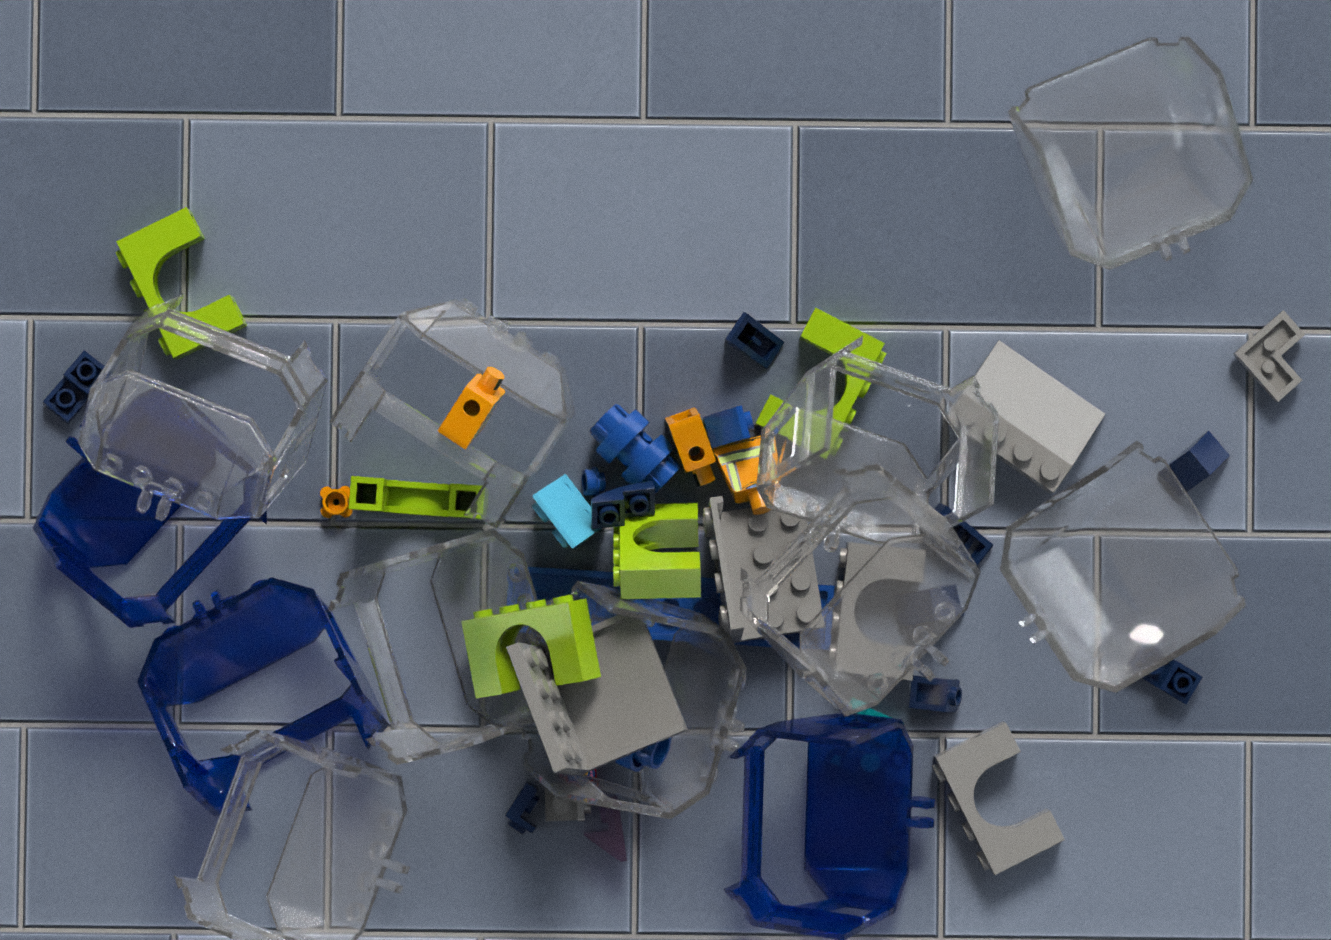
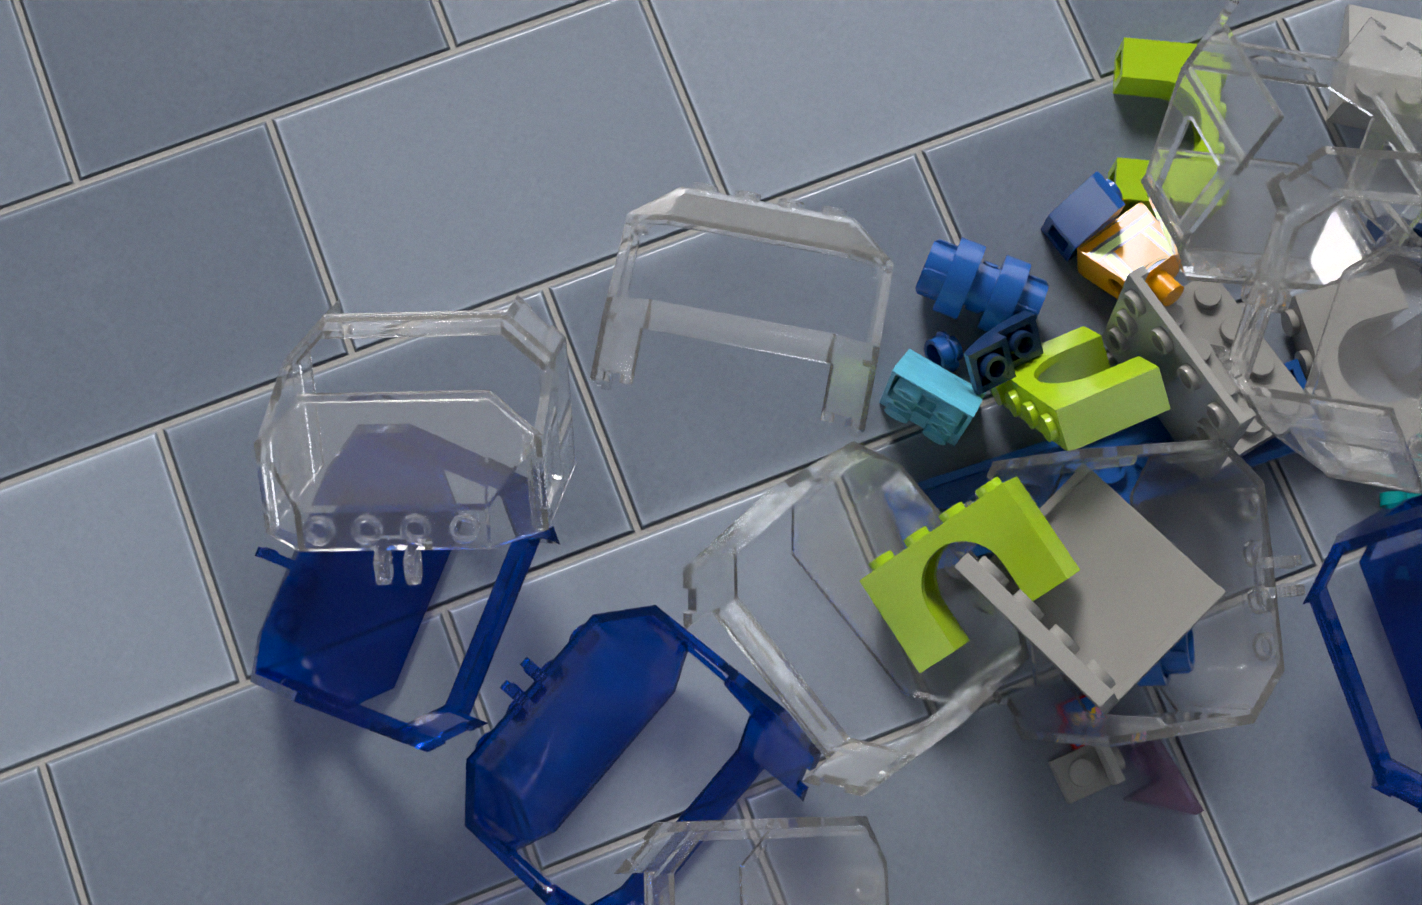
camera: 20 degrees left, 10 degrees down
(74, 388) = (240, 503): dark blue slope -> none
(145, 255) = (277, 289): lime arch -> none
(329, 496) = (636, 490): light orange plate -> none
(412, 497) = (788, 436): lime arch -> none
(473, 408) = (774, 292): light orange torso -> none
(525, 802) = (1031, 791): dark blue bracket -> none
(687, 433) = (1052, 251): light orange torso -> none
(754, 340) = (1061, 109): dark blue slope -> none

